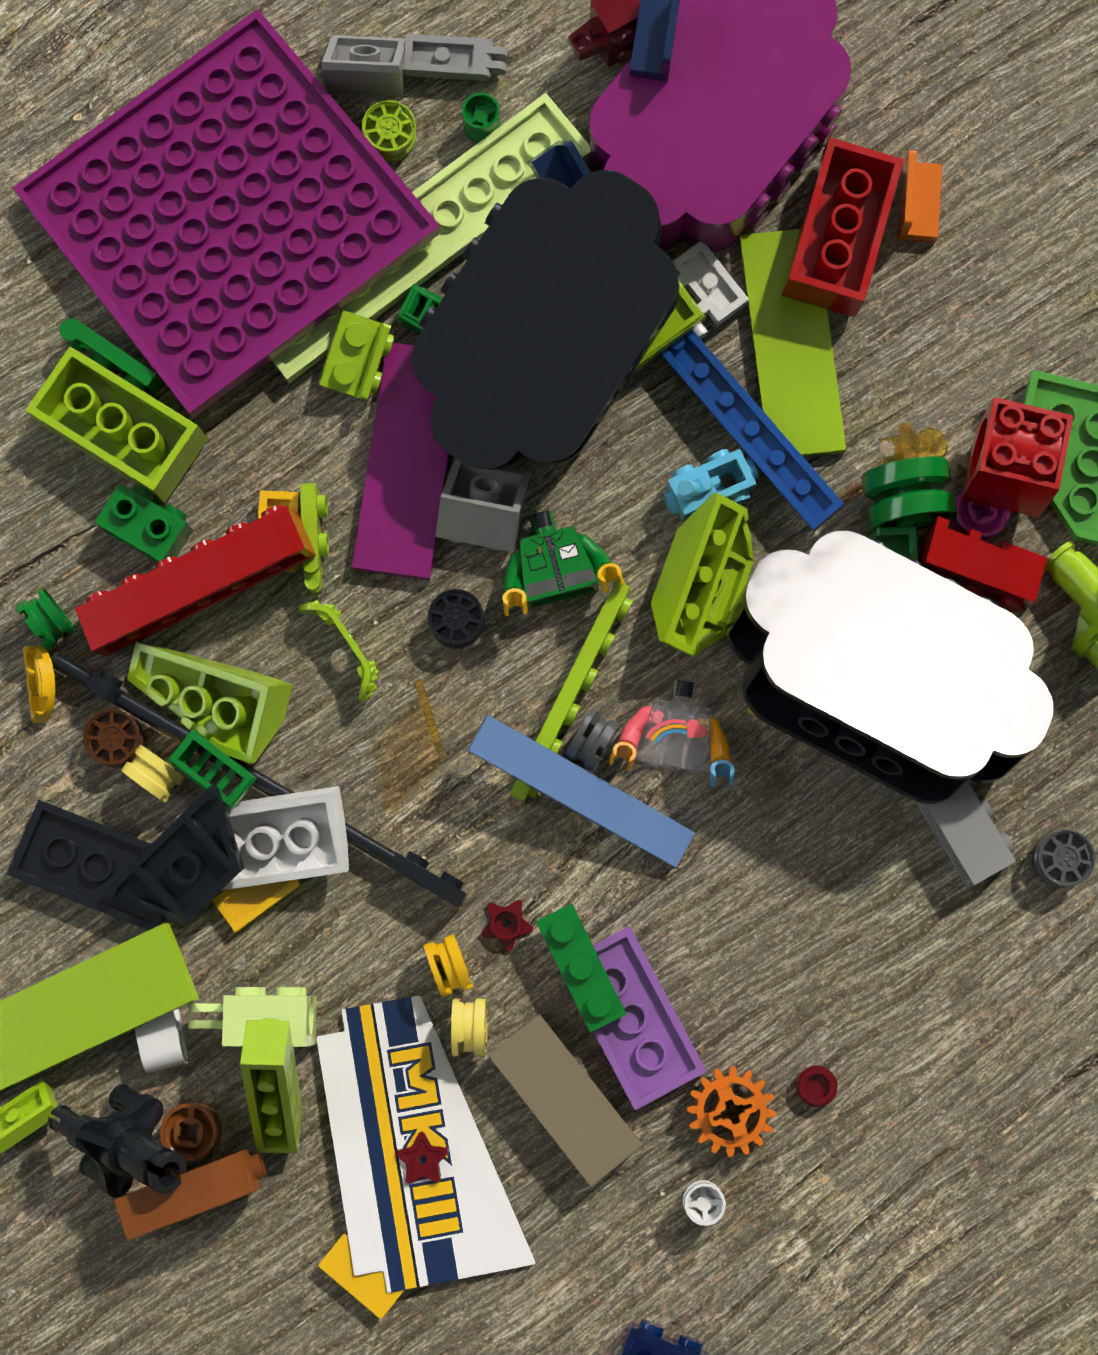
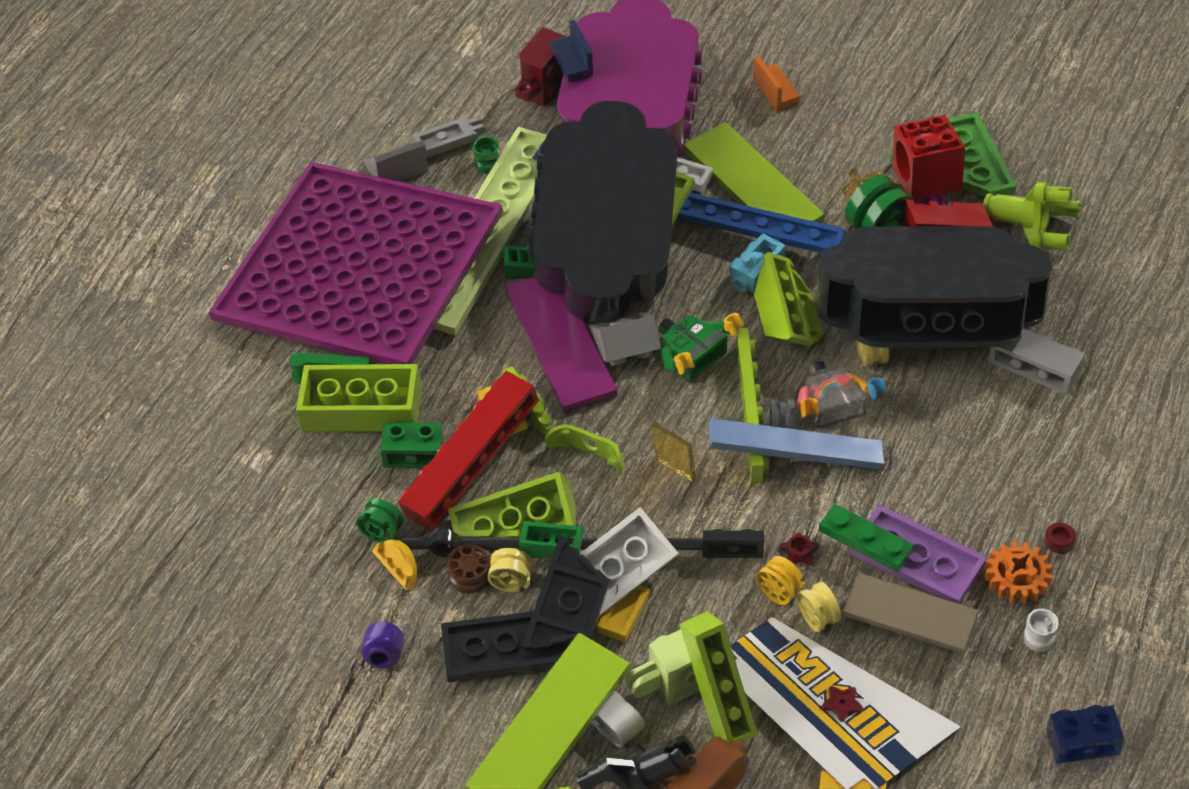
camera: 30 degrees left, 30 degrees down
(356, 355) = (491, 297): lime bracket -> none
(390, 129) = (427, 178): lime wheel -> none
(456, 618) = (649, 403): black wheel -> none
(842, 227) = (742, 109): red brick -> none
(1063, 858) = (1110, 348): dark grey wheel -> none

